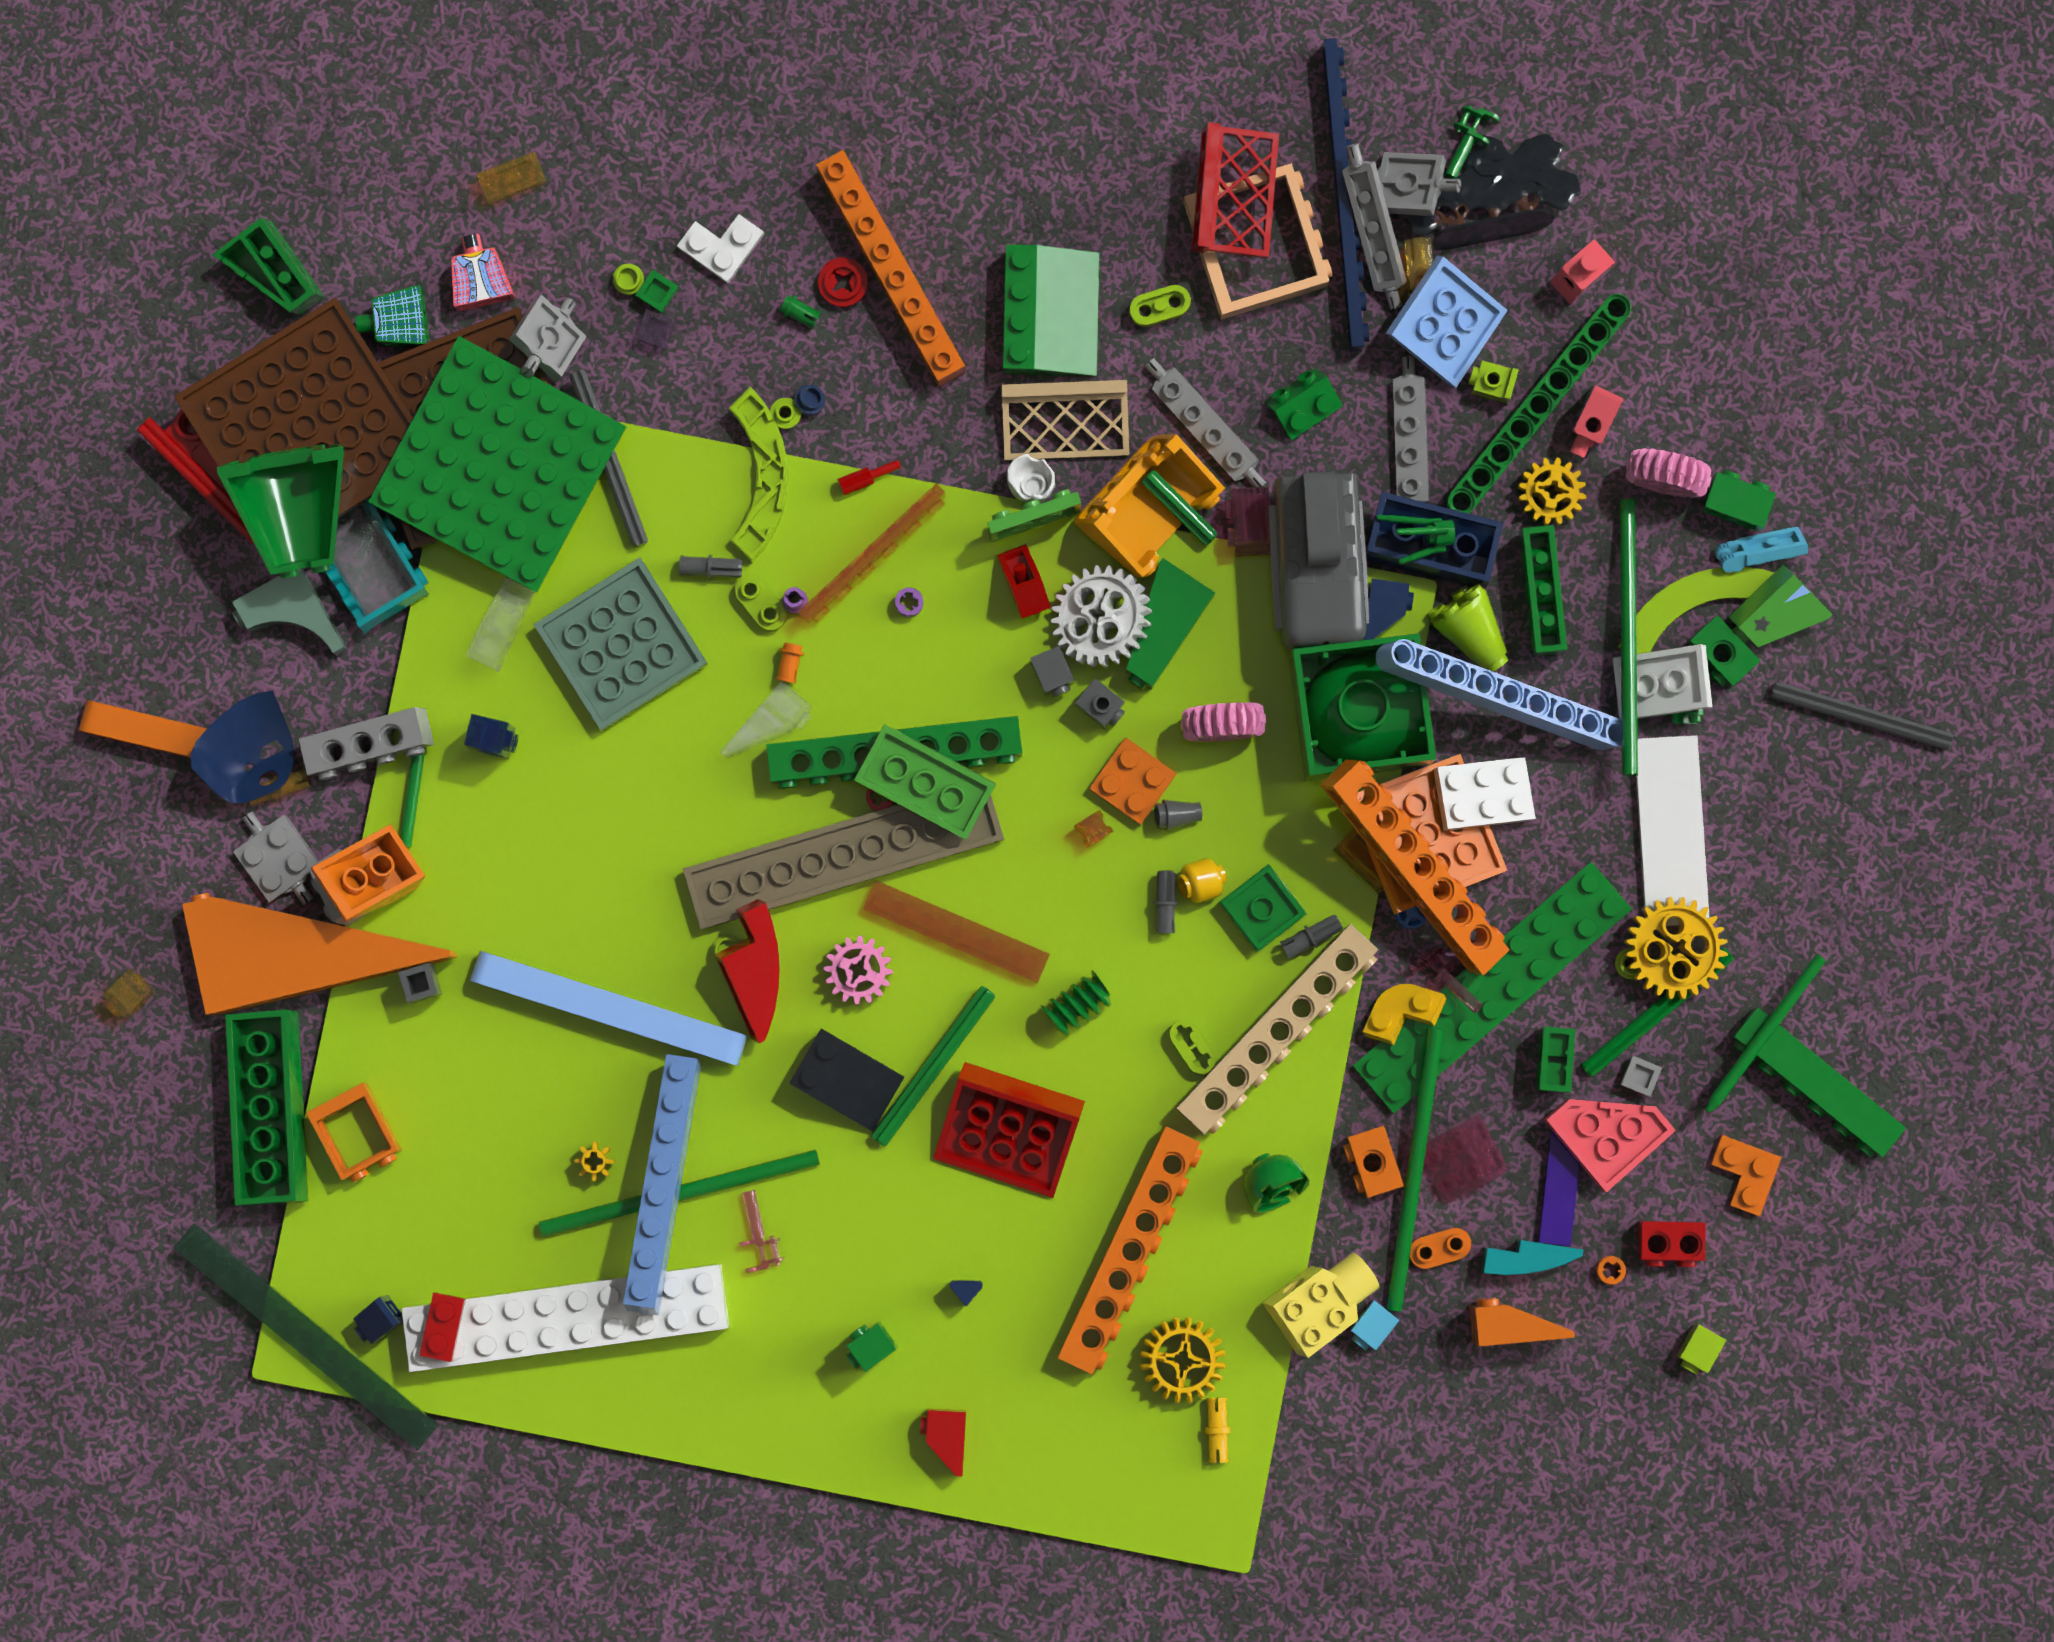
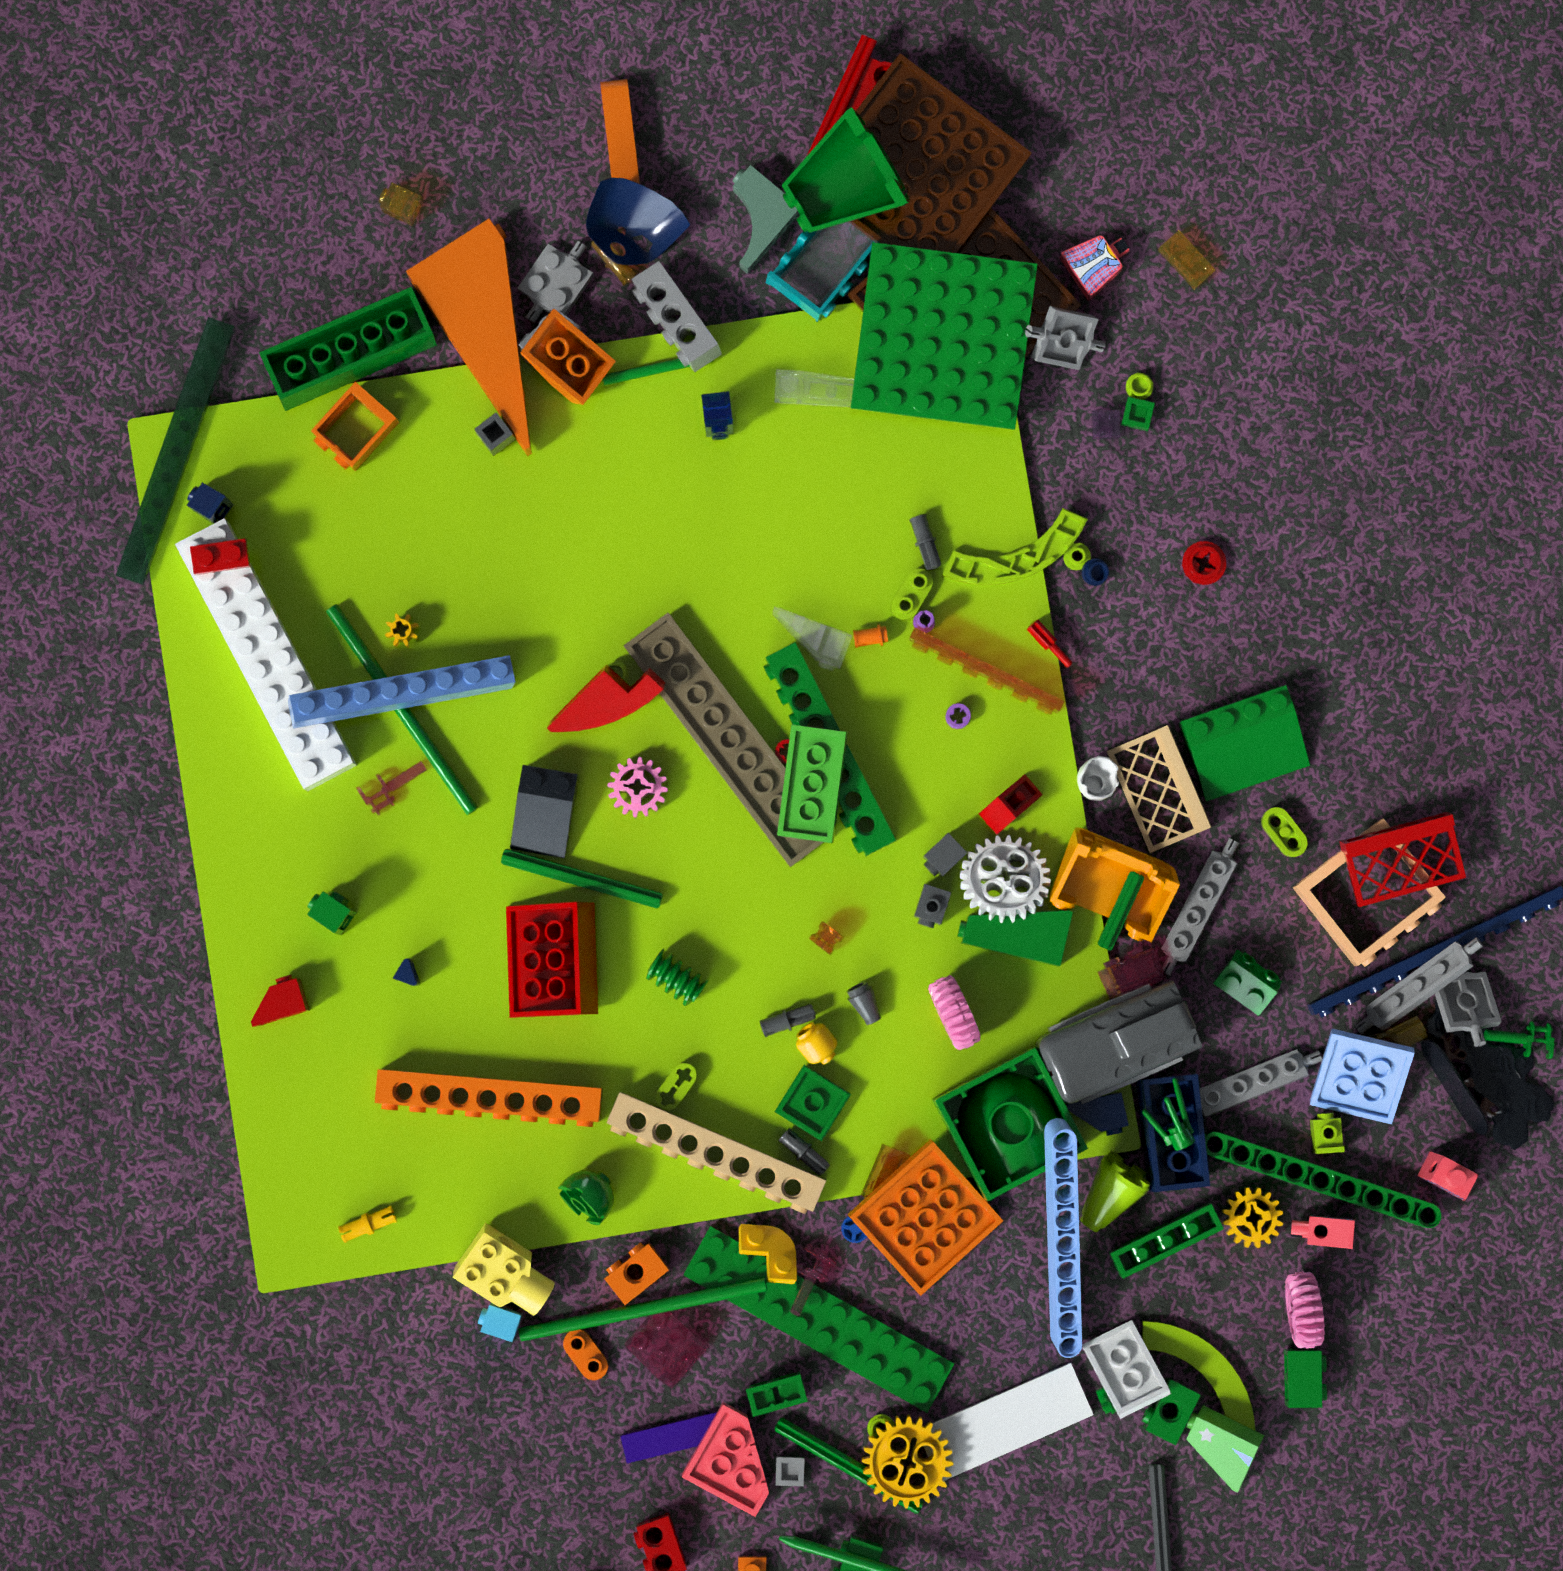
camera: 70 degrees right, 0 degrees up
(272, 266) = (1039, 91): green wedge -> none
(397, 319) = (1034, 211): green torso -> none
(608, 1008) = (531, 595): light blue beam -> none
(613, 469) = (976, 432): dark grey axle -> none
(620, 644) = (834, 492): sand green plate -> none
(721, 255) = (1190, 458): white plate -> none
(797, 310) = (1165, 535): green pin -> none
(890, 268) = (1230, 597): orange brick -> none
(956, 931) = (699, 856): clear orange plate -> none
(1034, 515) = (1068, 791): bright green plate -> none
(1132, 781) = (878, 956): orange plate -> none
(1179, 1388) = (411, 1161): yellow gear -> none
(1342, 789) = (932, 1132): orange brick -> none
(1484, 794) = (977, 1253): white plate -> none
(1501, 1324) = (540, 1432): orange slope -> none
(1528, 1258) = (603, 1431): teal slope -> none
(1609, 1279) = (628, 1503): orange bush -> none
(1628, 638) = (1153, 1326): green piece -> none
(1761, 549) = (1271, 1412): medium azure hinge -> none

